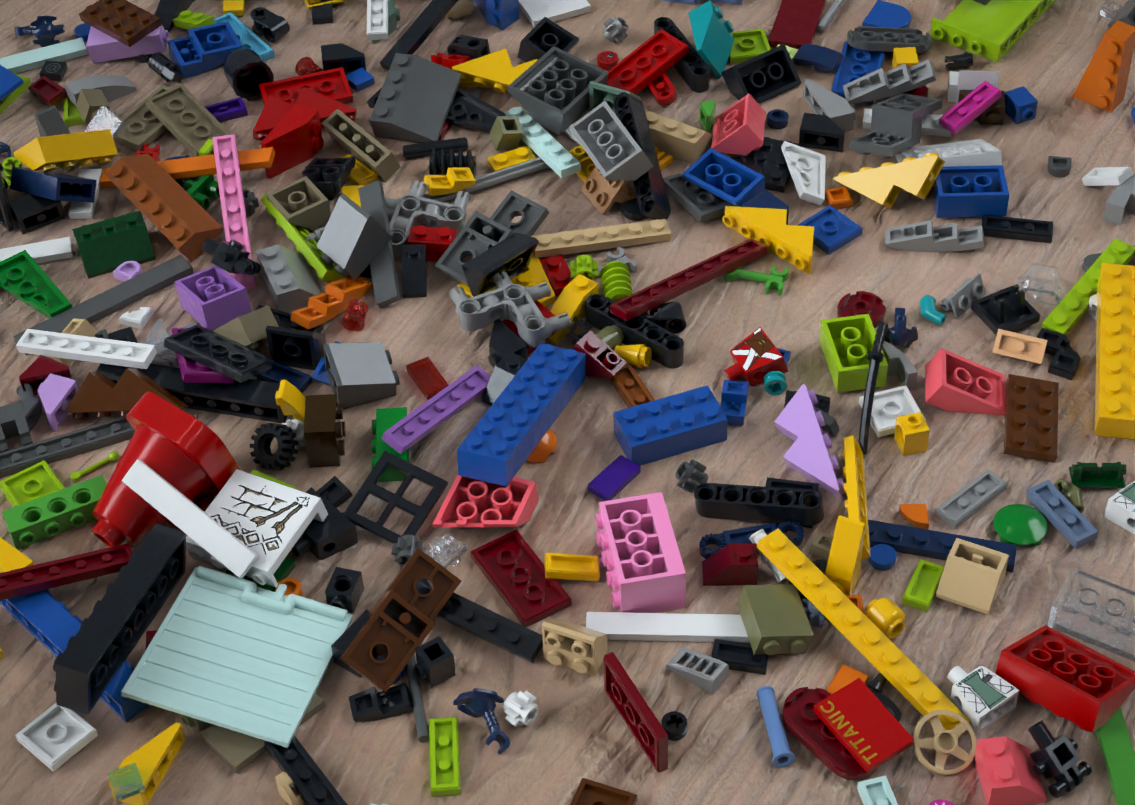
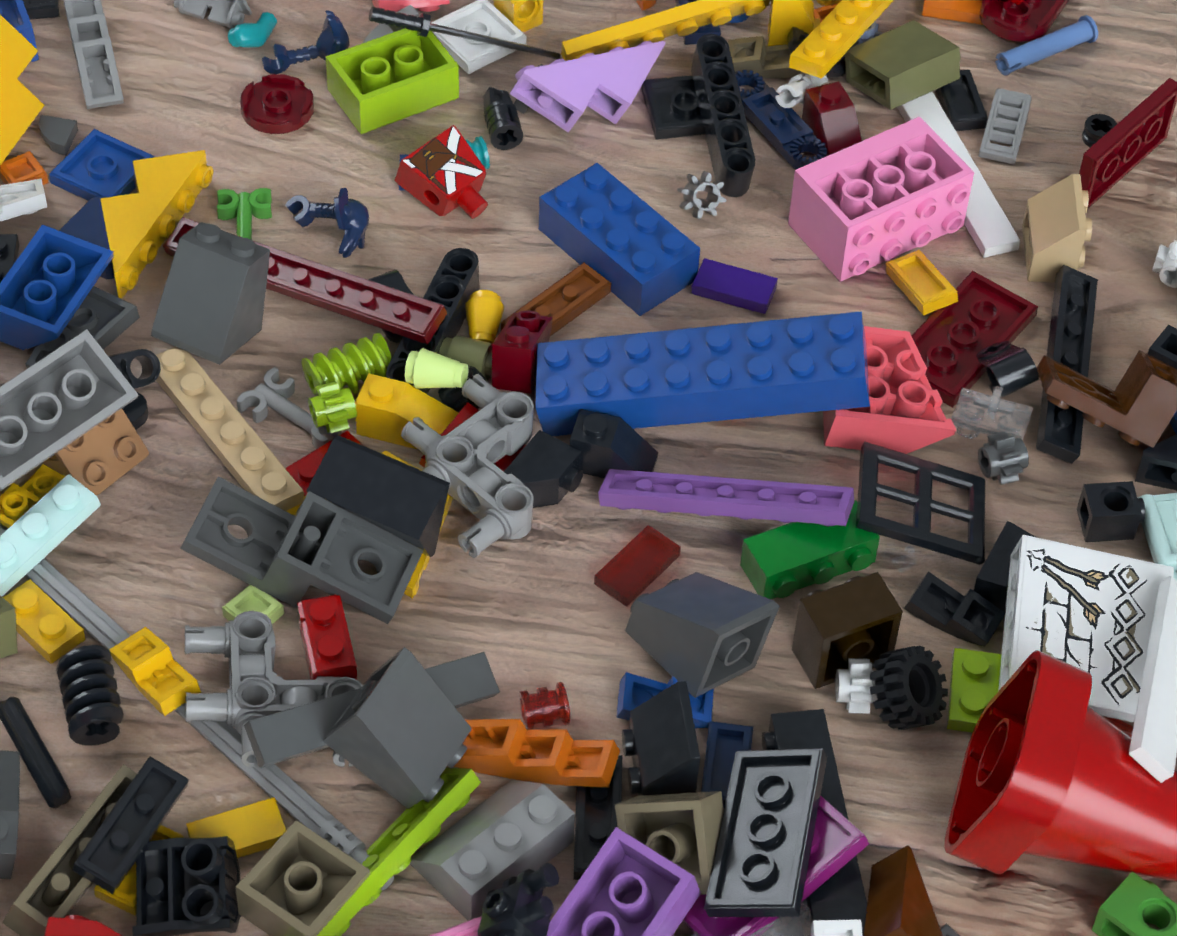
camera: 115 degrees left, 5 degrees up
(291, 400) = (812, 692): yellow slope -> none
(359, 151) = (130, 825): none -> black tile
(414, 270) = (383, 642): black slope -> none
(468, 566) = (1008, 367): none -> black piece
(582, 302) = (434, 370): none -> yellowish green cone
(686, 237) = (213, 293): none -> dark grey slope
(734, 401) = (517, 198): blue slope -> none
(737, 308) = (349, 213): none -> dark blue piece
(866, 215) = (58, 132): none -> dark grey tile

